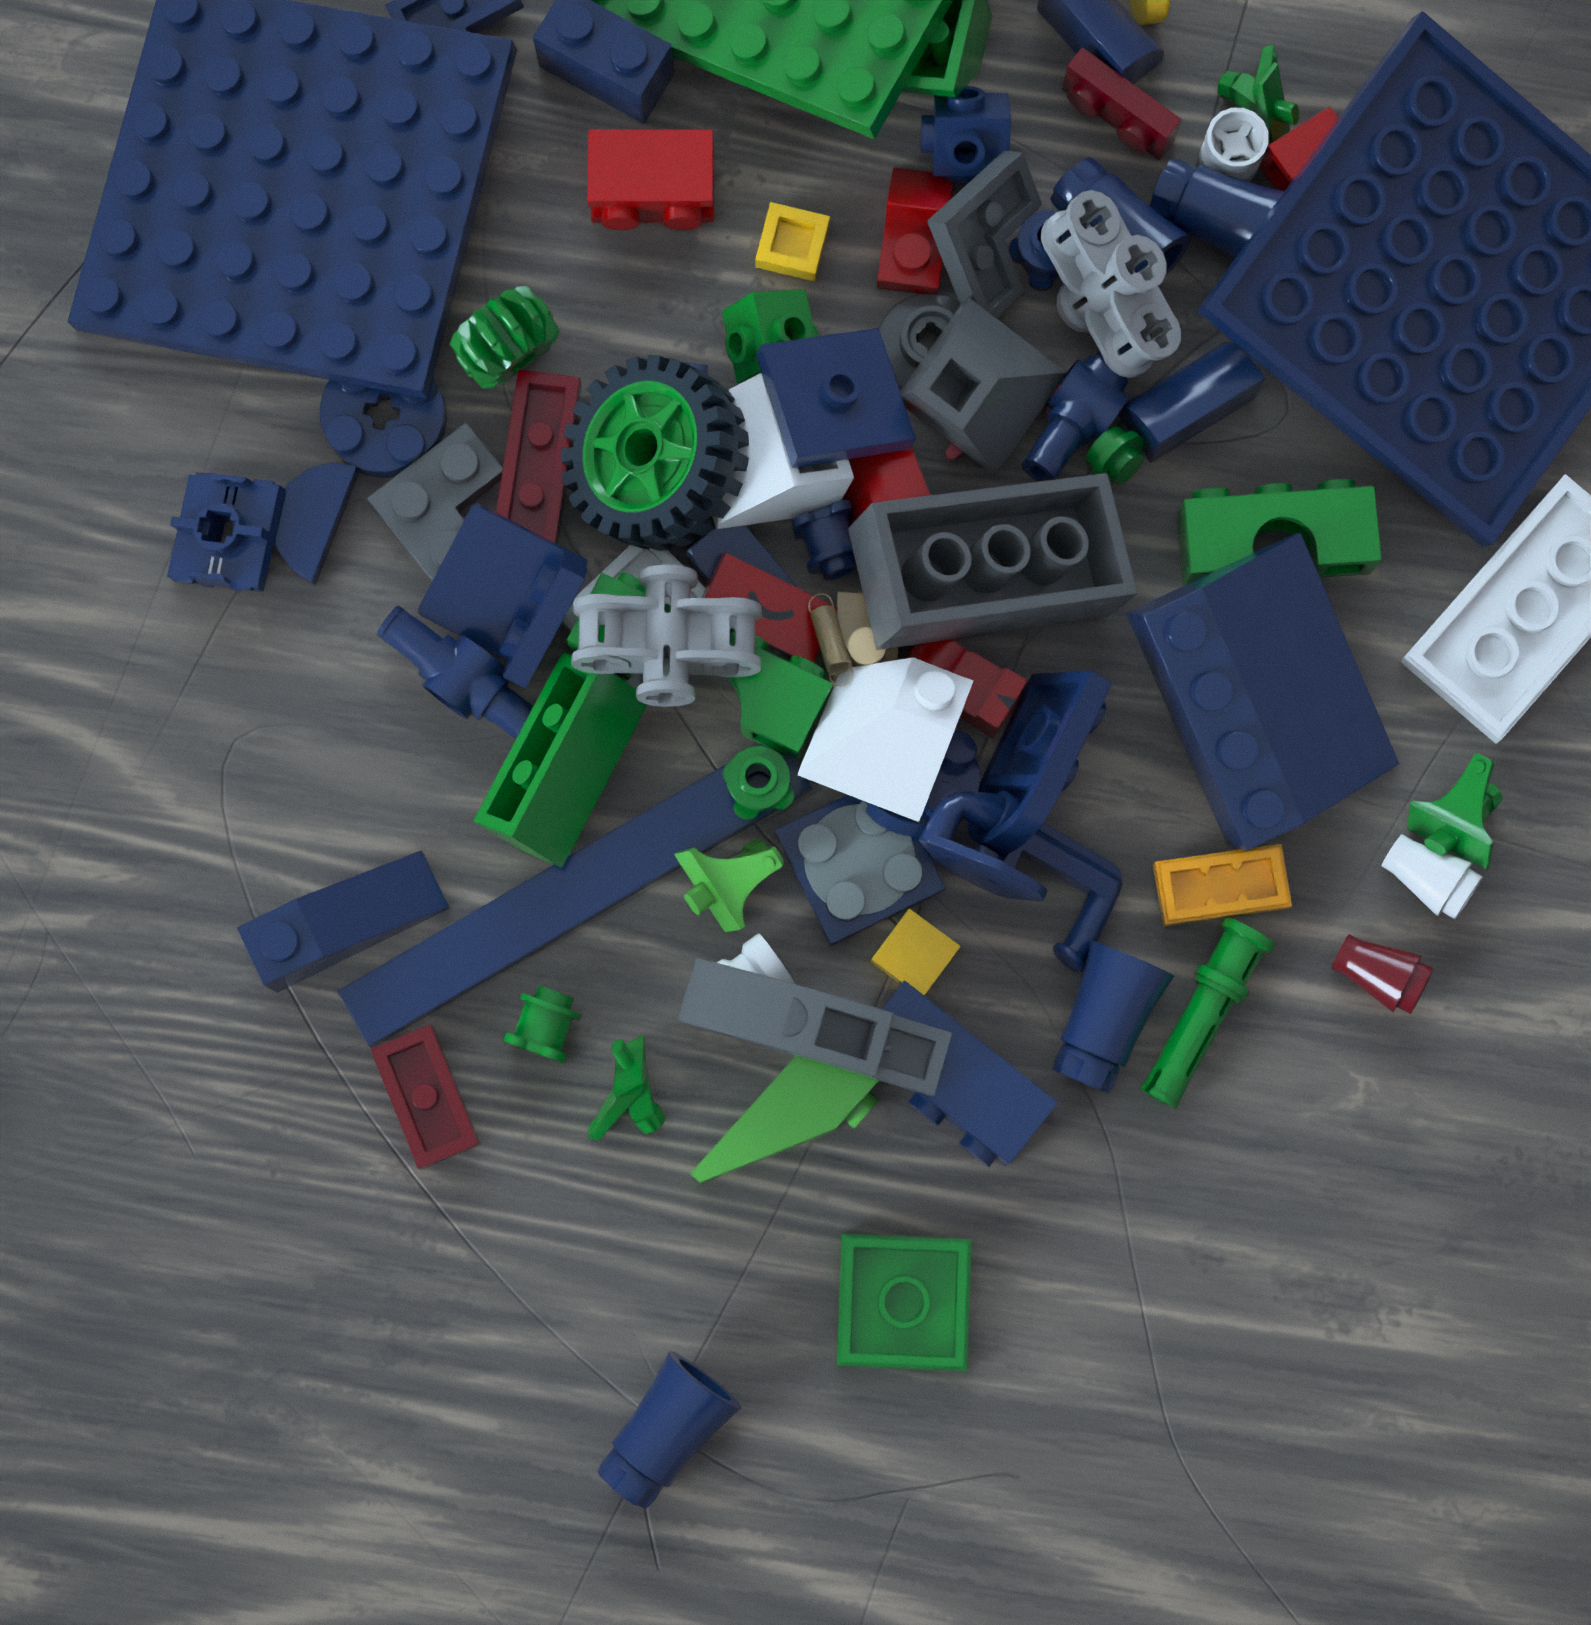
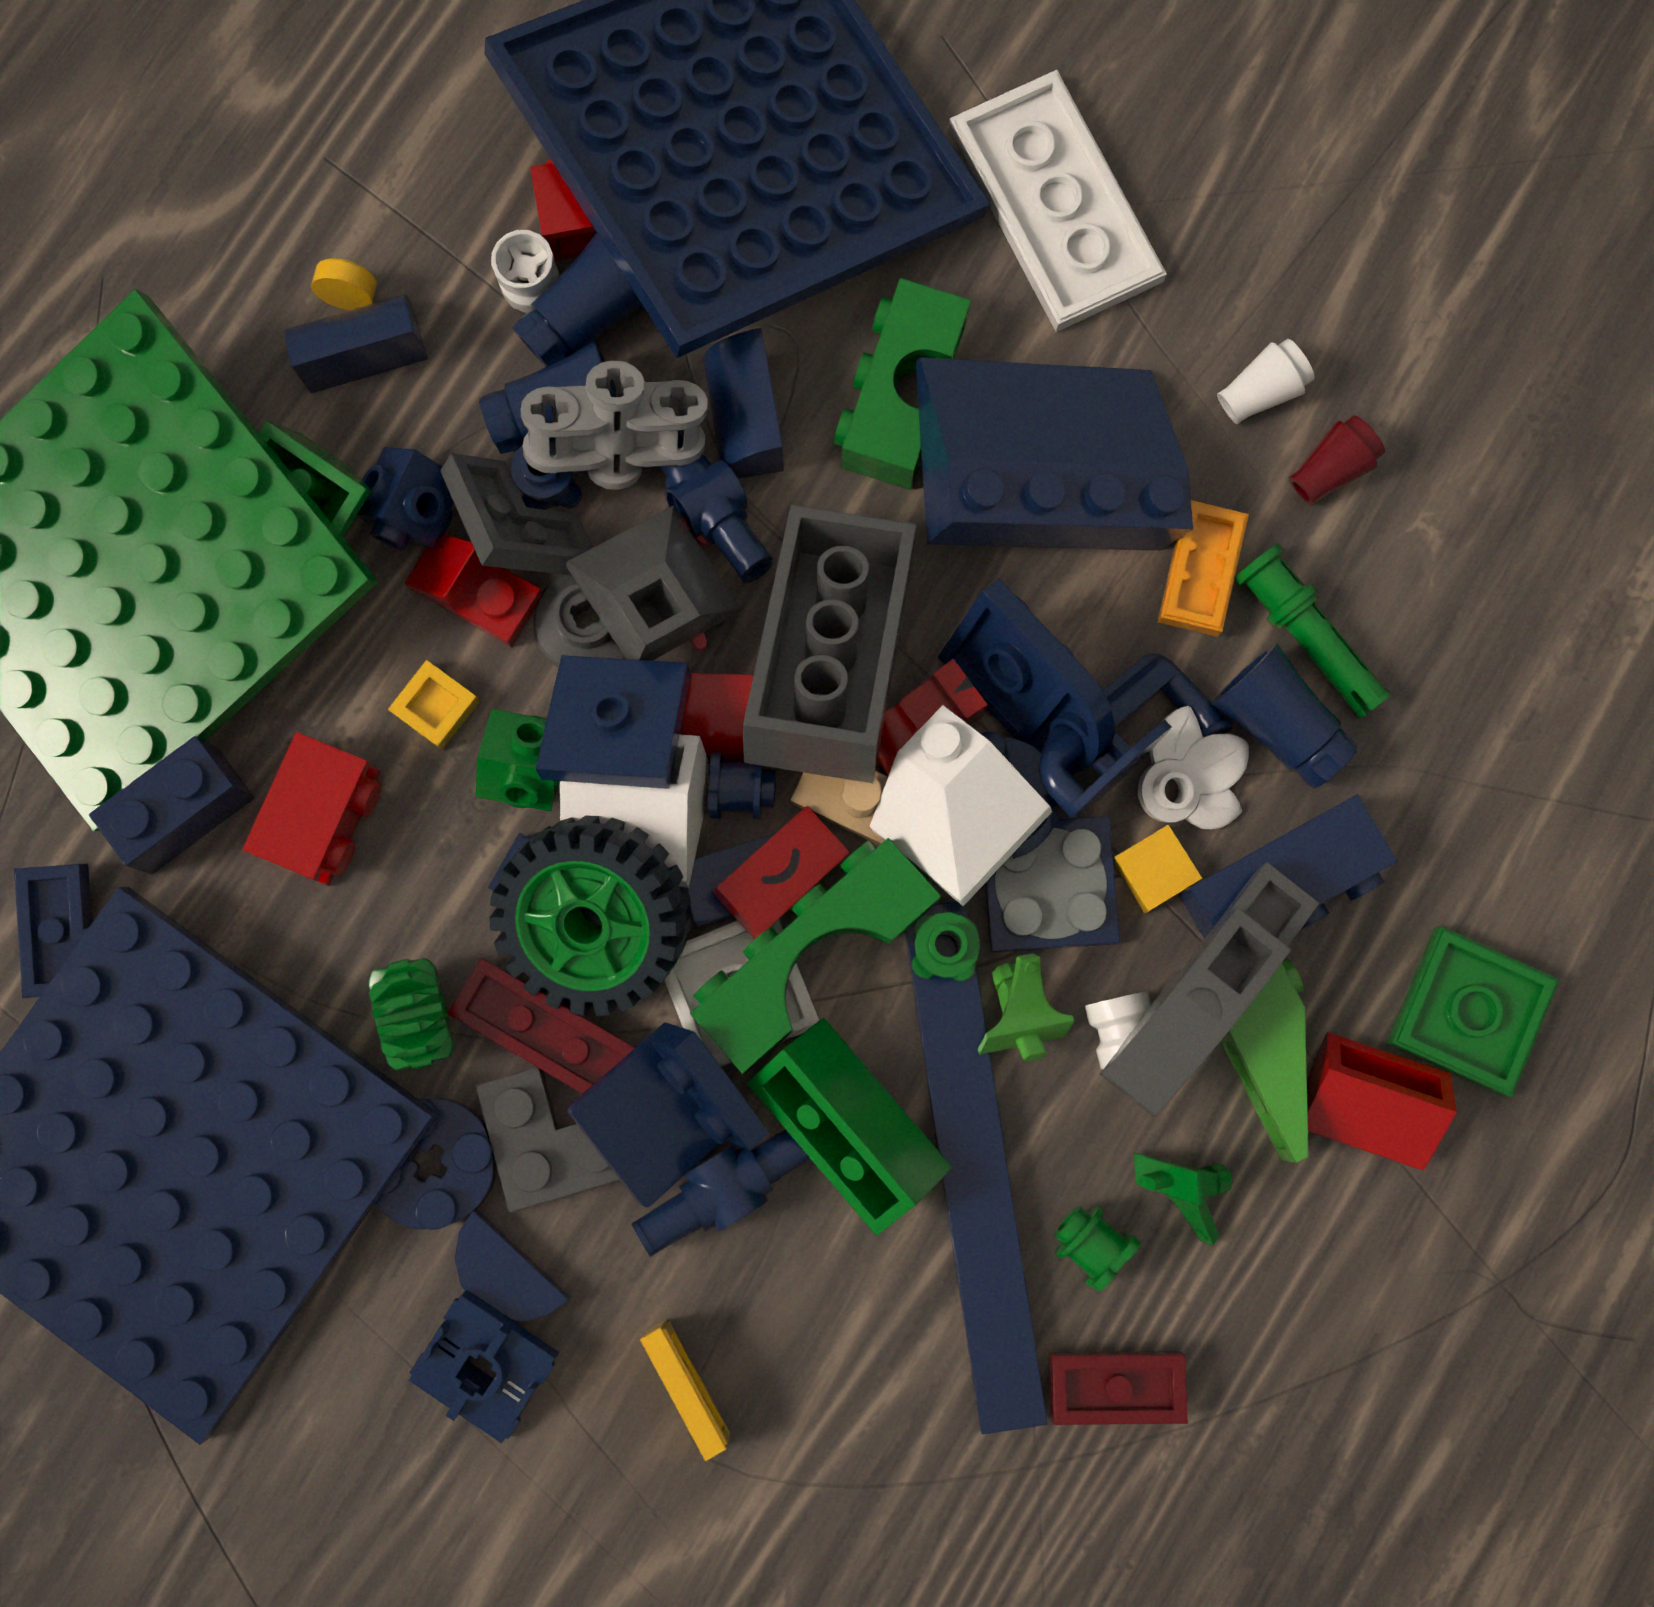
camera: 70 degrees left, 0 degrees up
(275, 713) = (686, 1389): none -> yellow tile
(341, 920) = (916, 1403): dark blue slope -> none
(643, 635) = (773, 997): light grey axle -> none
(666, 1430) = (1520, 1280): dark blue plant -> none
(780, 1237) = (1378, 1101): none -> red brick
(830, 639) = (839, 823): tan piece -> none
(1026, 958) = (1202, 771): none -> white plate
(1103, 92) = (454, 344): dark red plate -> none
(1116, 454) = (769, 495): green plate -> none
(1262, 94) = (487, 224): green piece -> none
(1458, 817) = (1226, 337): green piece -> none

